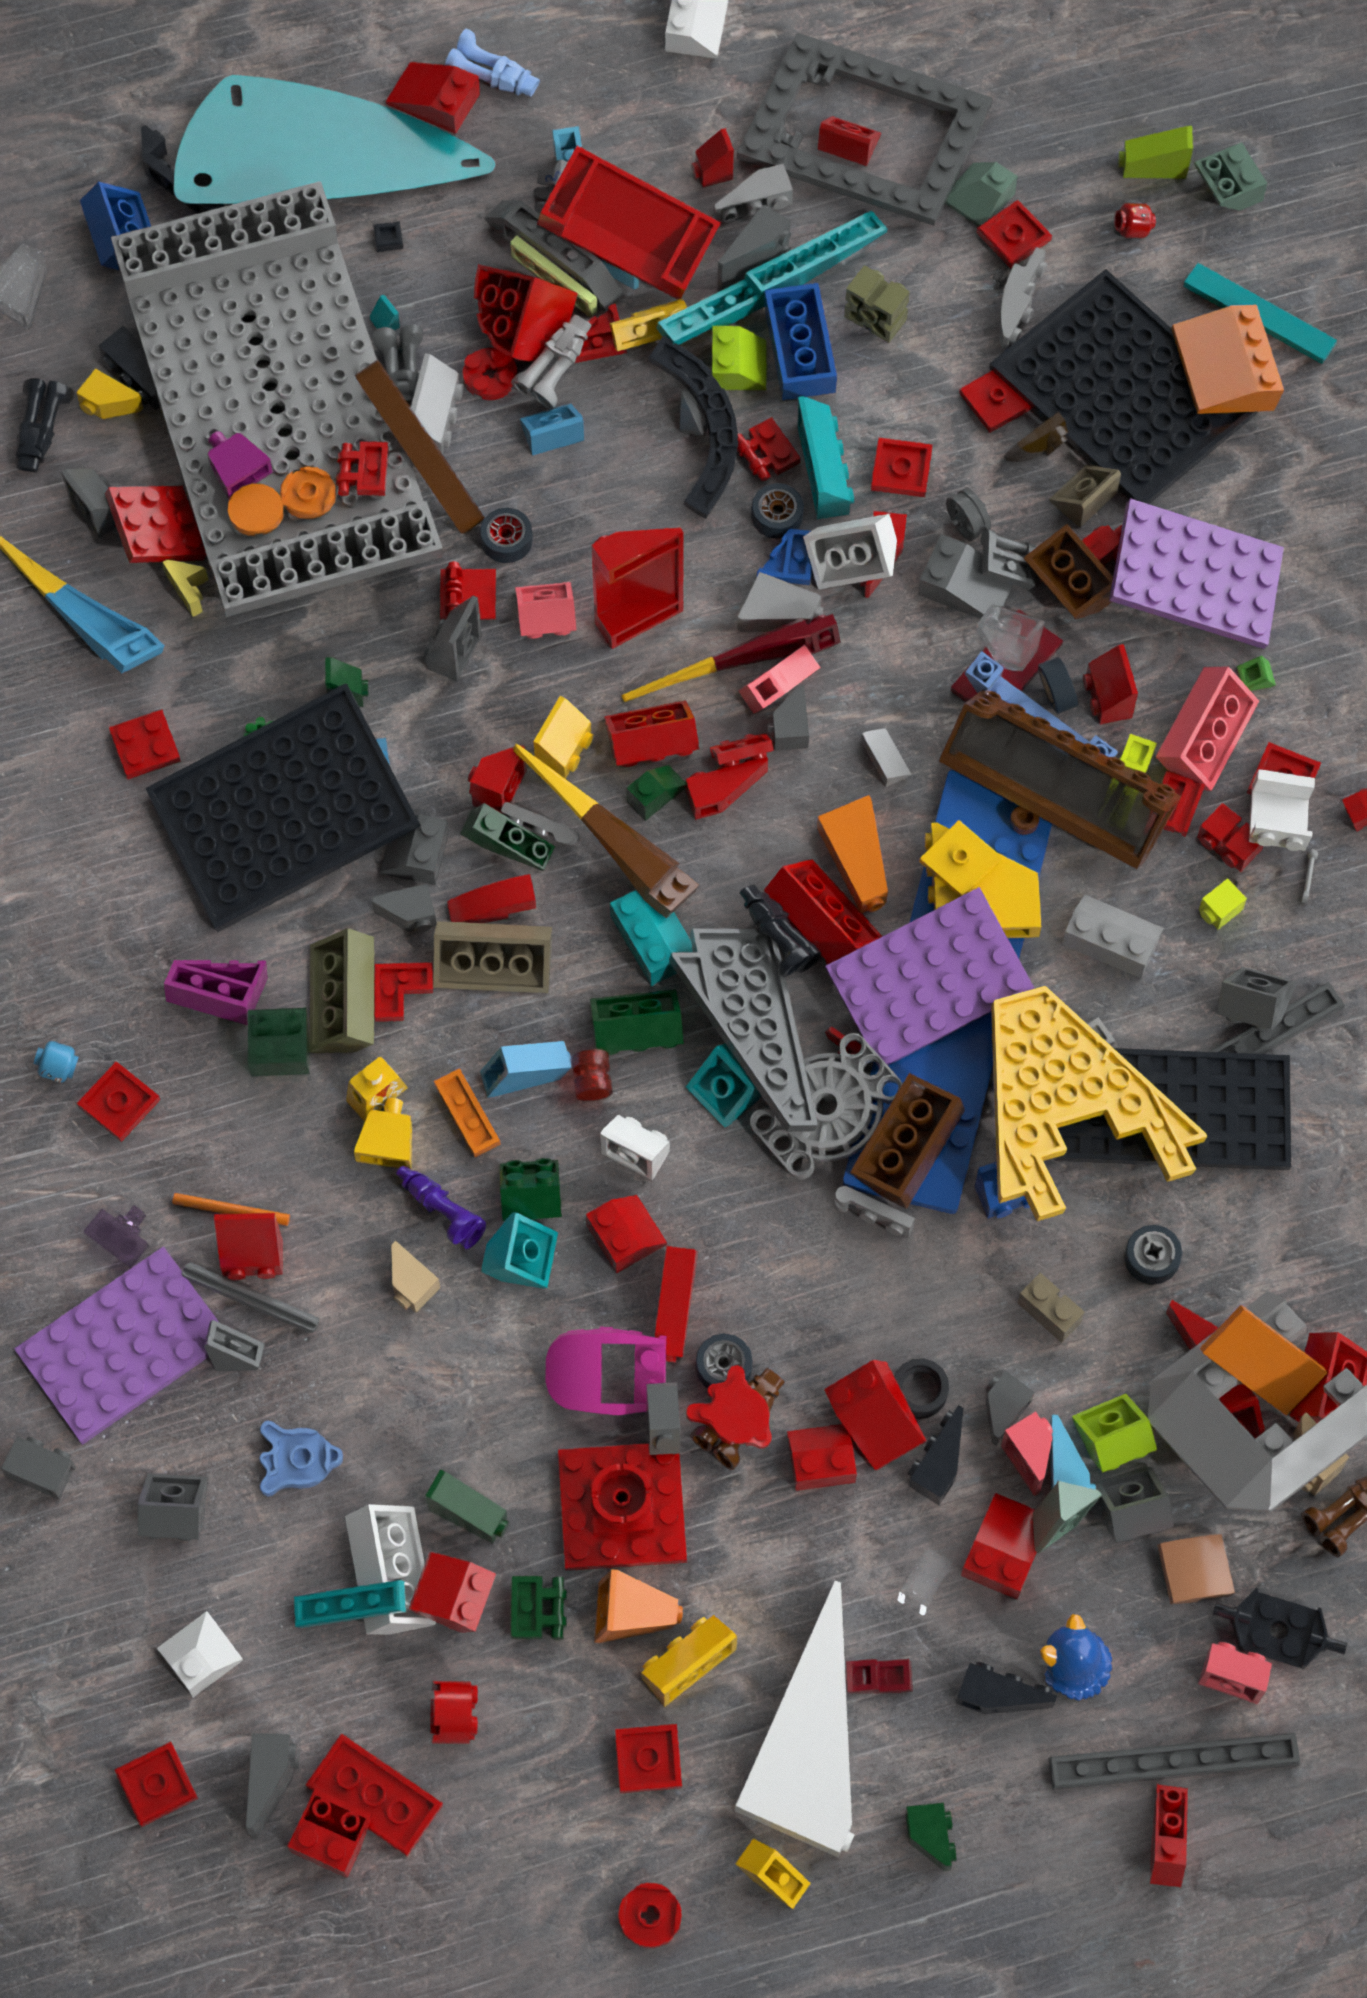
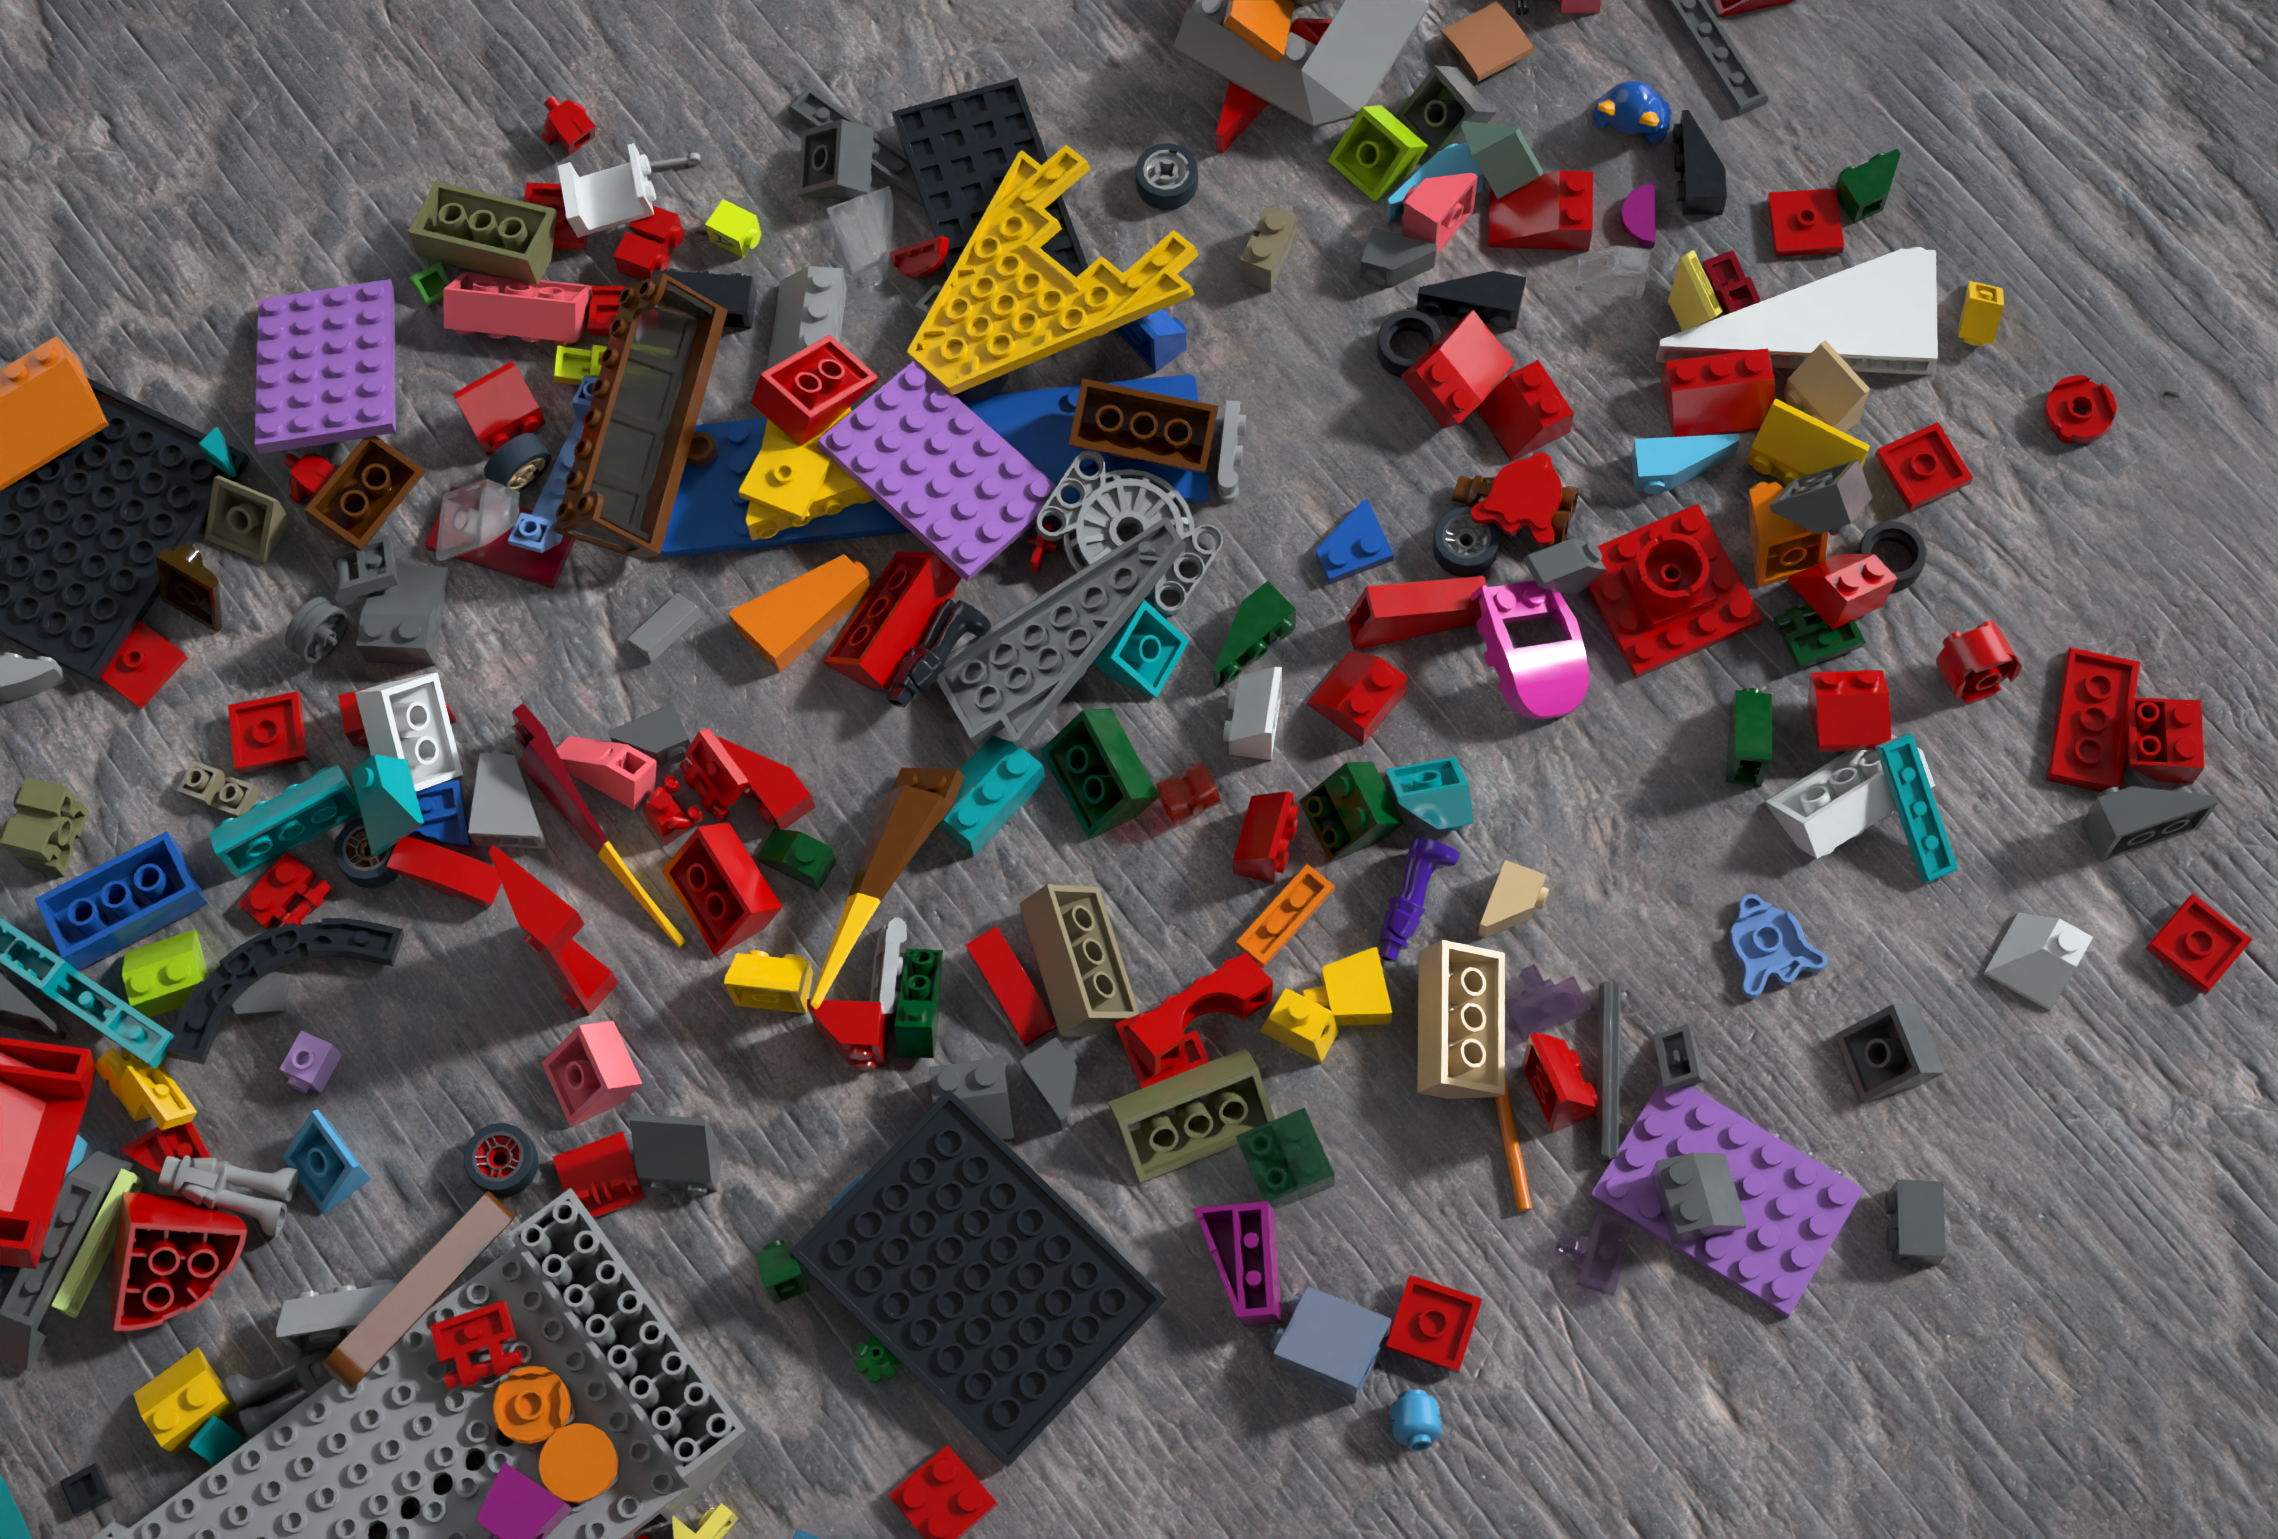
camera: 105 degrees left, 0 degrees up
(121, 1311) = (1697, 1196): none -> dark grey slope
(133, 1023) = (1331, 1341): none -> sand blue slope
(319, 1271) = (1545, 1003): none -> clear purple hinge
(328, 1203) = (1461, 1021): none -> tan slope
(403, 983) = (1234, 989): none -> red arch
(421, 300) = (182, 1401): none -> yellow slope
(484, 360) = (286, 1277): red plate -> none
(525, 1067) = (1208, 869): dark azure slope -> none
(531, 1117) = (1266, 836): none -> red slope
(558, 1682) = (1907, 537): none -> black tyre
(563, 1634) = (1844, 587): none -> red slope
(629, 433) = (310, 1063): none -> lavender brick
(630, 1633) = (1825, 499): none -> dark grey slope
(713, 1174) = (1257, 624): none -> dark green slope
(725, 712) = (666, 813): none -> red piece
(731, 1549) = (1670, 461): none -> medium azure slope
(738, 553) = (445, 871): none -> red slope
(739, 1699) = (1827, 389): none -> tan slope
(757, 1280) = (1354, 546): none -> blue wing
(776, 1618) = (1718, 393): none -> red slope
(798, 515) = (386, 801): none -> teal slope
(869, 427) = (217, 790): none -> dark tan slope
(876, 1633) = (1692, 294): none -> light yellow slope
(918, 1766) = (1805, 222): none -> red plate
(976, 1628) = (1639, 215): none -> magenta tile
(1029, 900) = (812, 389): none -> red slope
(1140, 1033) = (921, 258): none -> red tile
(1144, 482) = (218, 452): none -> teal slope
(1161, 870) = (732, 292): none -> black slope
(1177, 1000) = (865, 235): none -> clear slope
(1279, 715) = (484, 232): none -> olive slope

